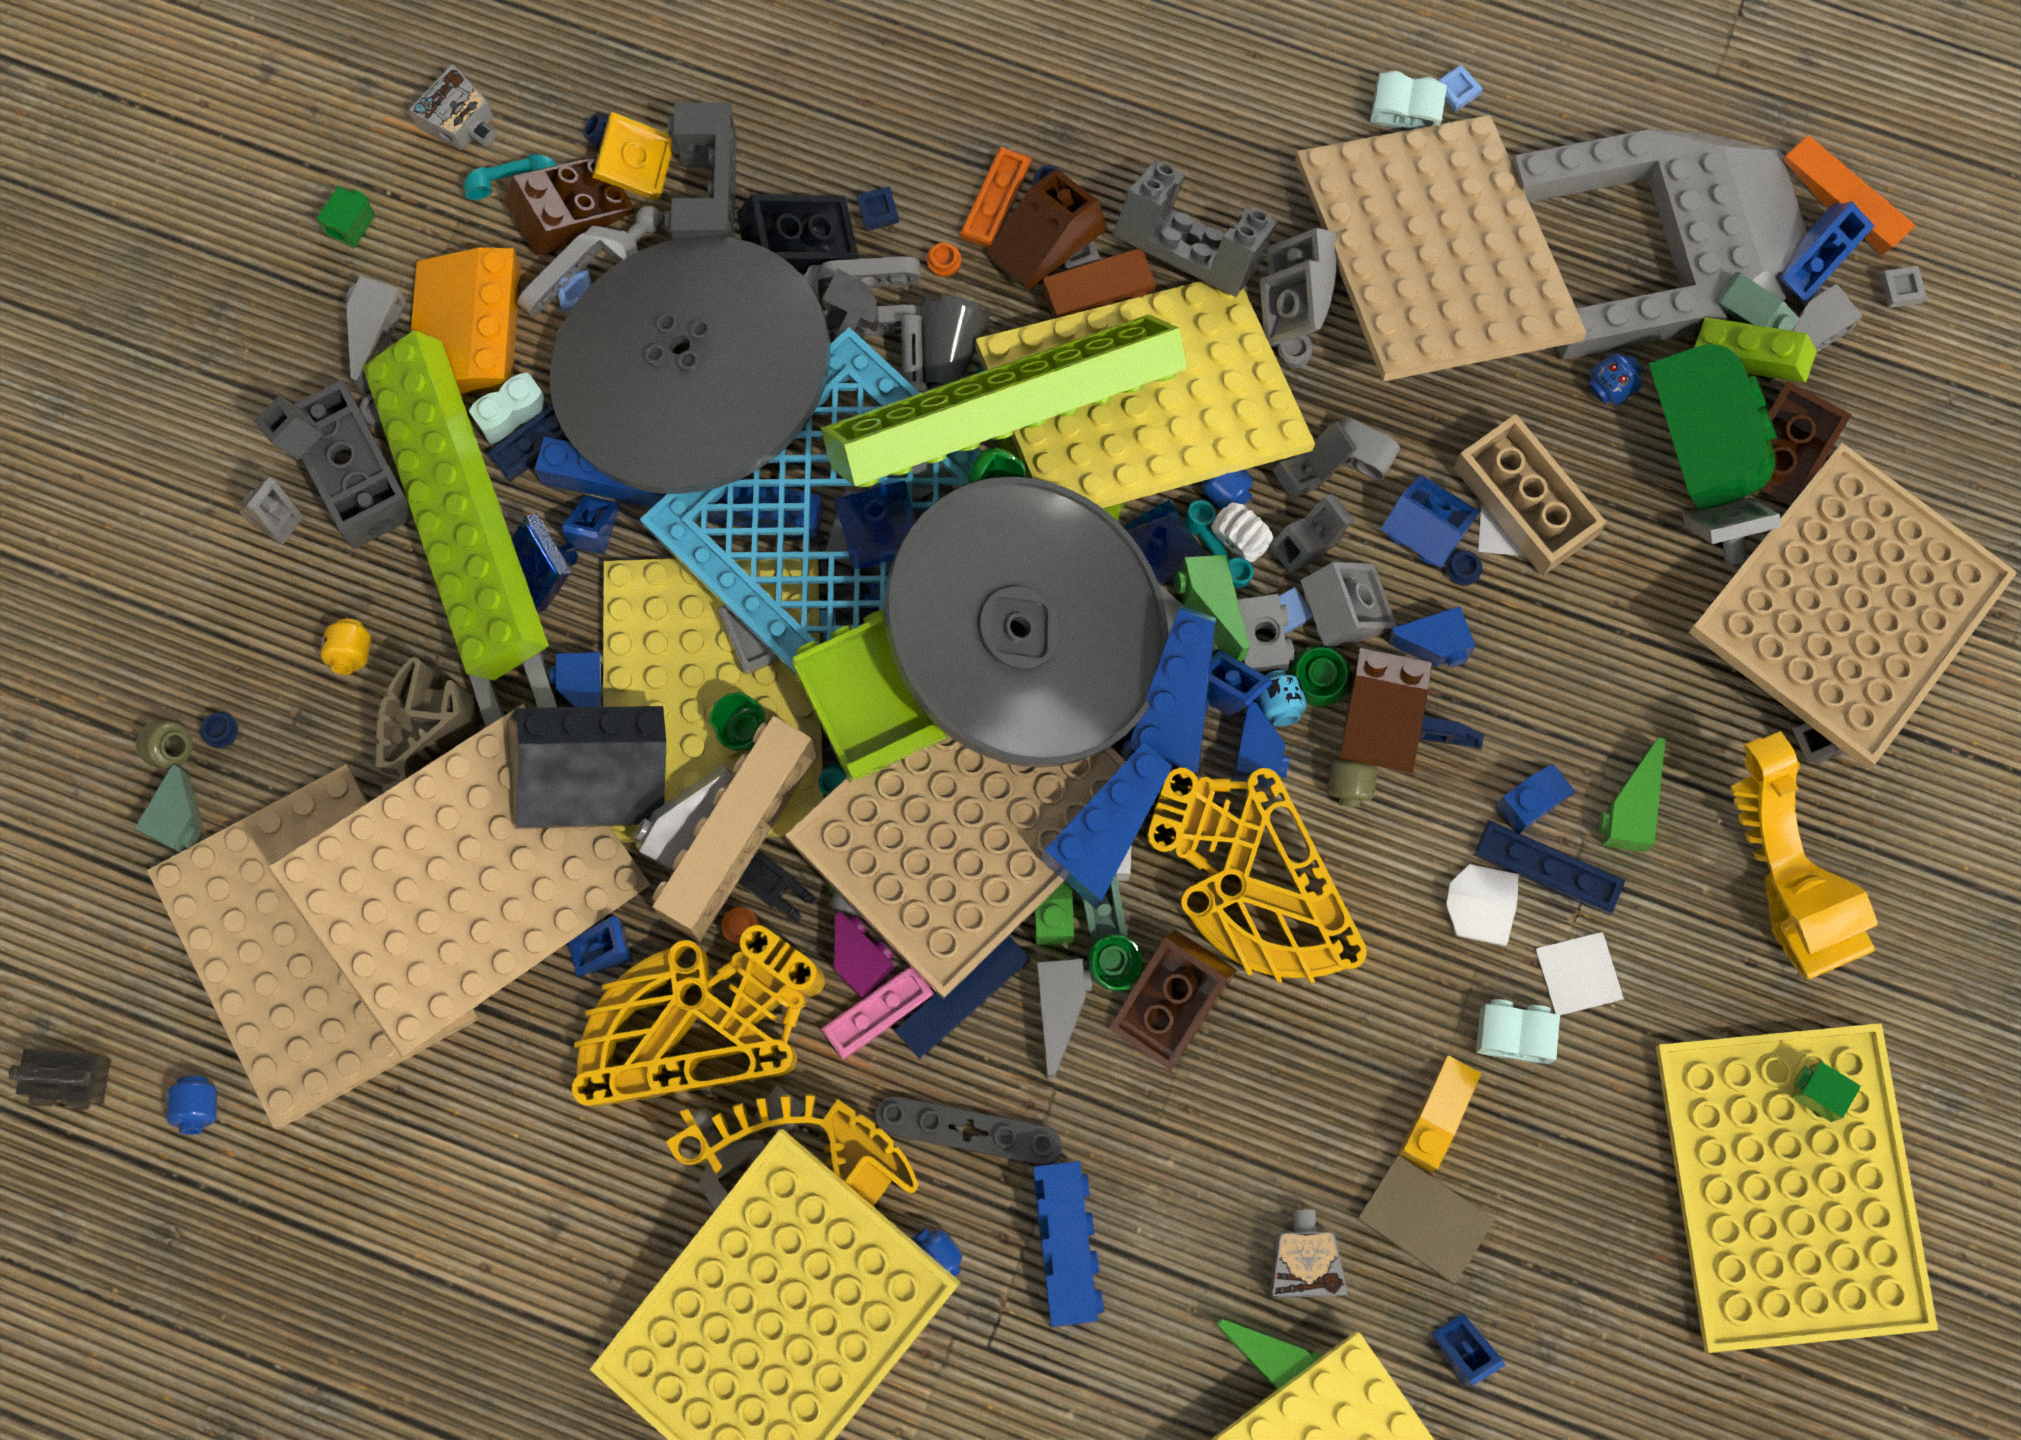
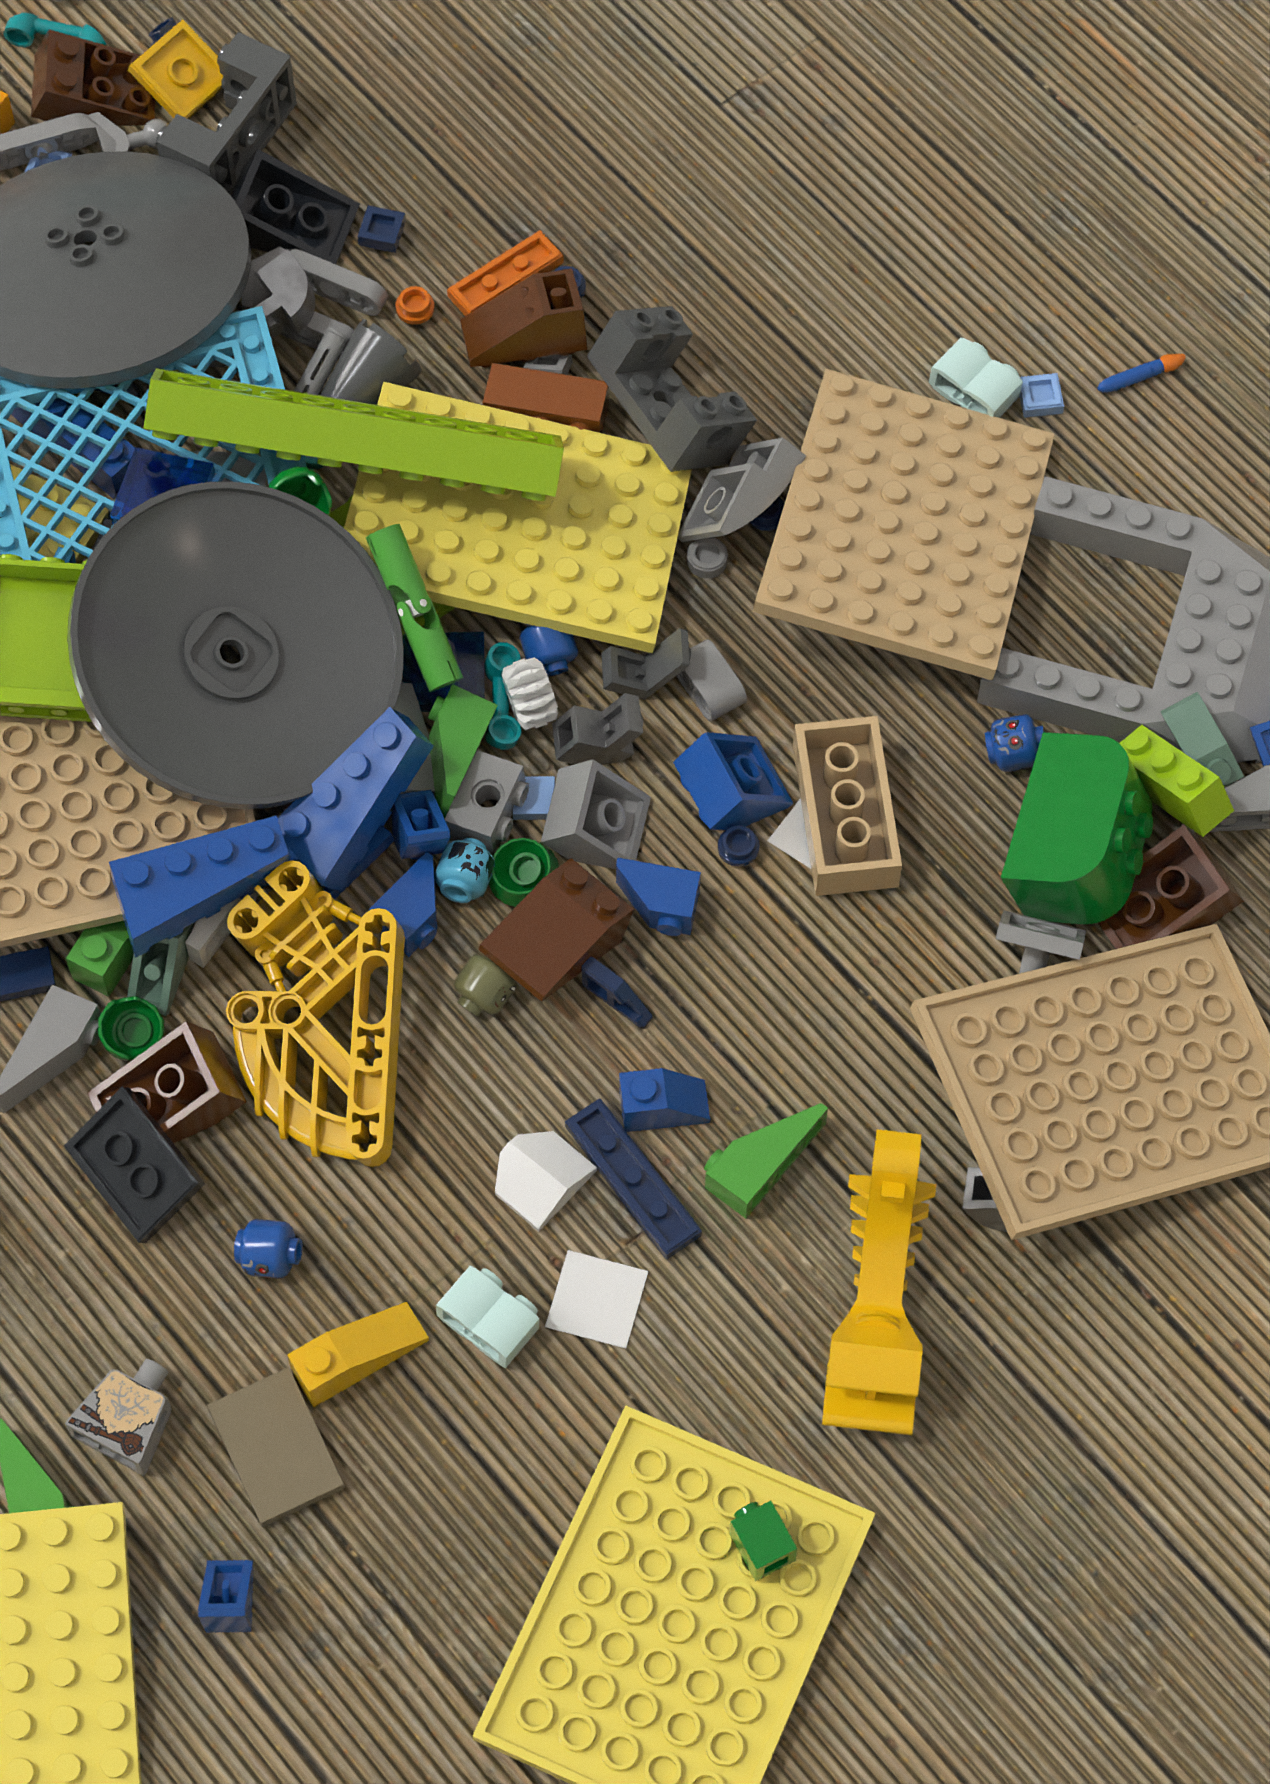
camera: 30 degrees right, 10 degrees down
(1112, 496) = (411, 601): none -> bright green piece
(1186, 1066) = (134, 1165): none -> black tile
(1326, 1074) = (267, 1248): none -> blue head
(1533, 15) = (1165, 363): none -> blue piece

